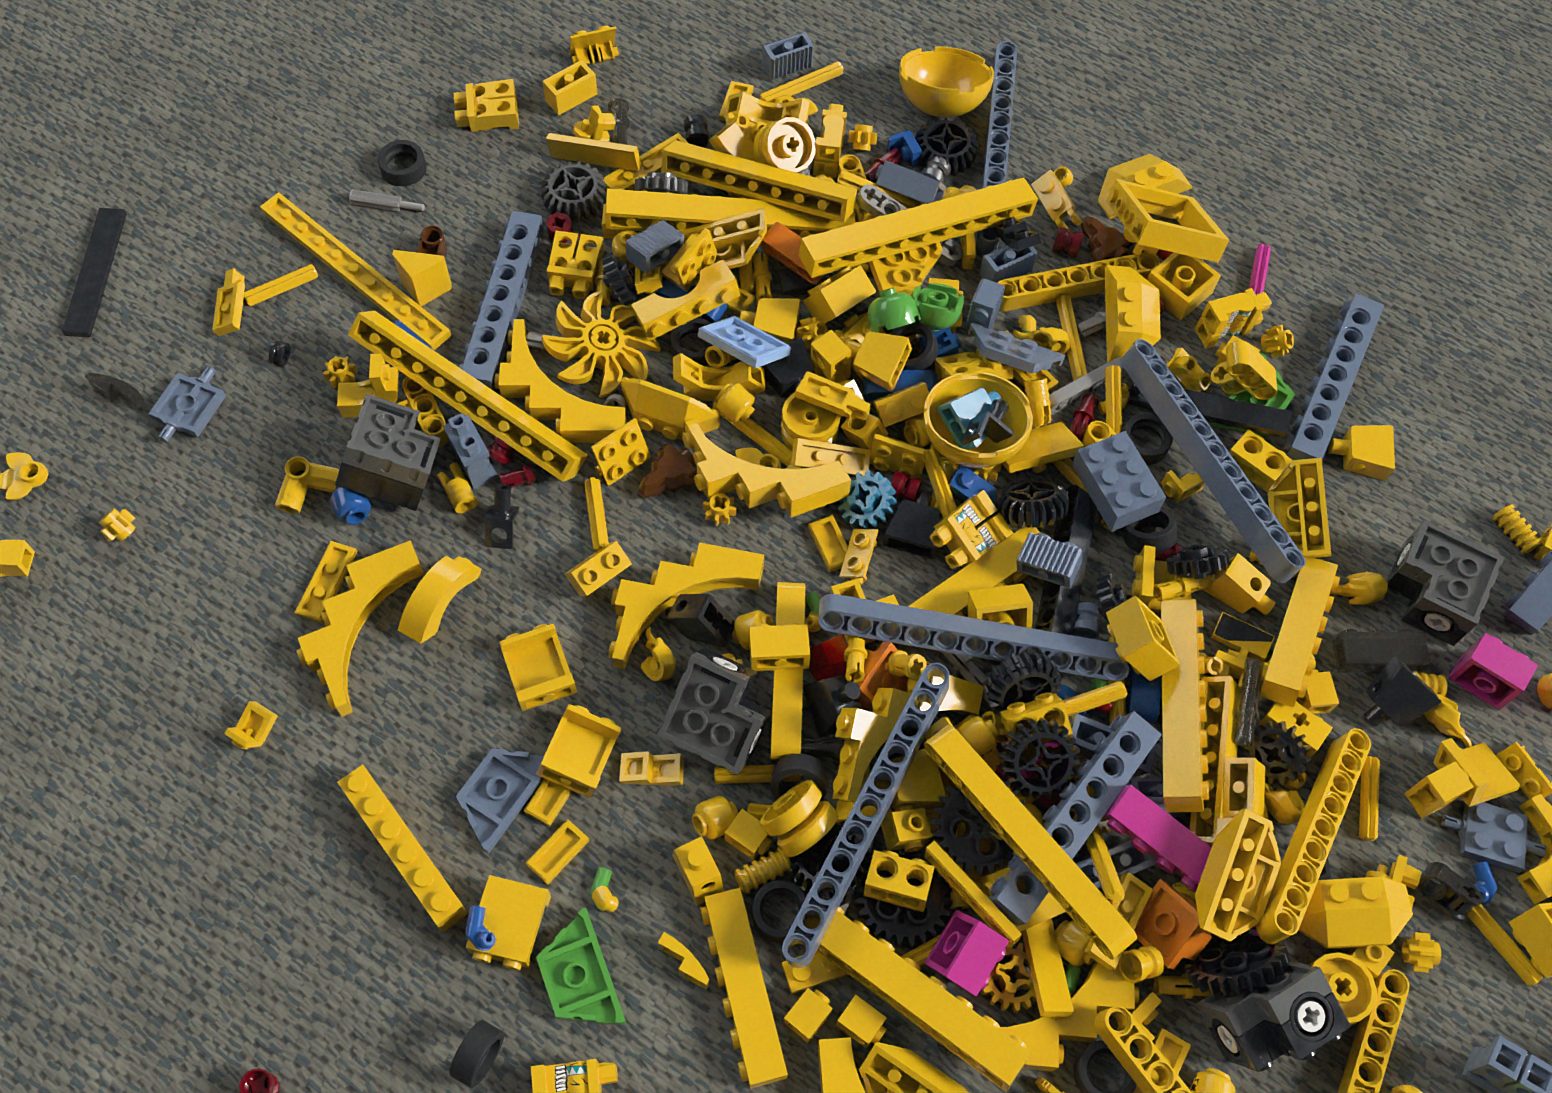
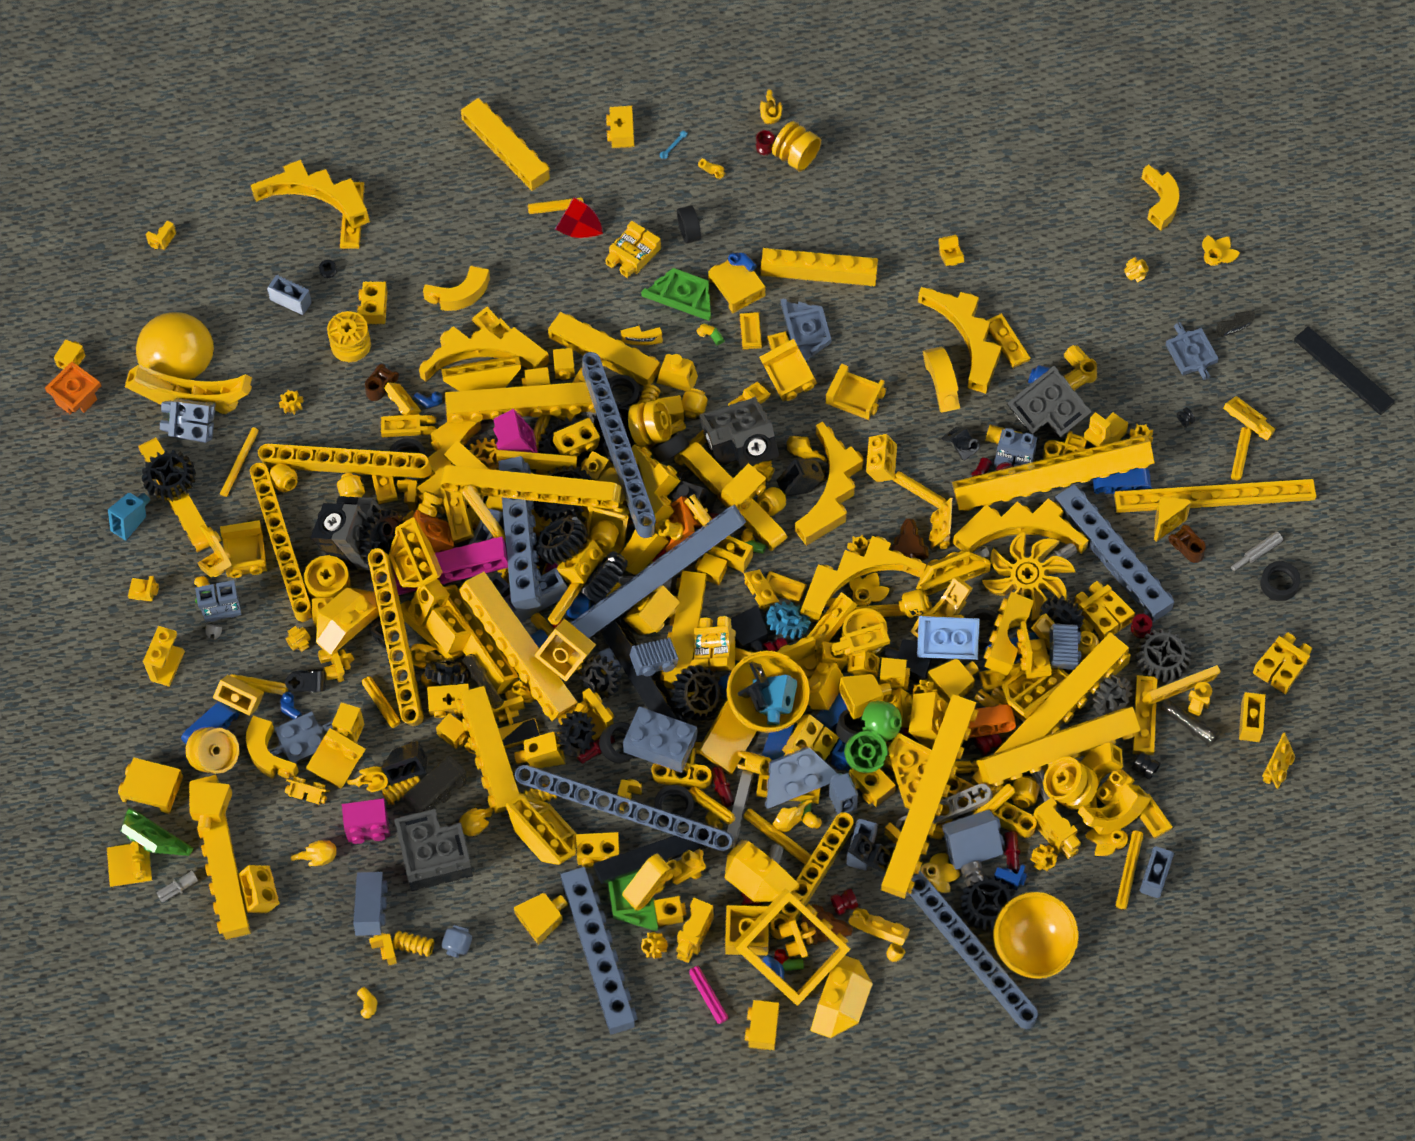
camera: 140 degrees right, 0 degrees up
(237, 1026) = (796, 146): none -> yellow wheel
(1236, 212) = (763, 1025): none -> yellow brick
(1471, 494) = (457, 941): none -> sand blue head

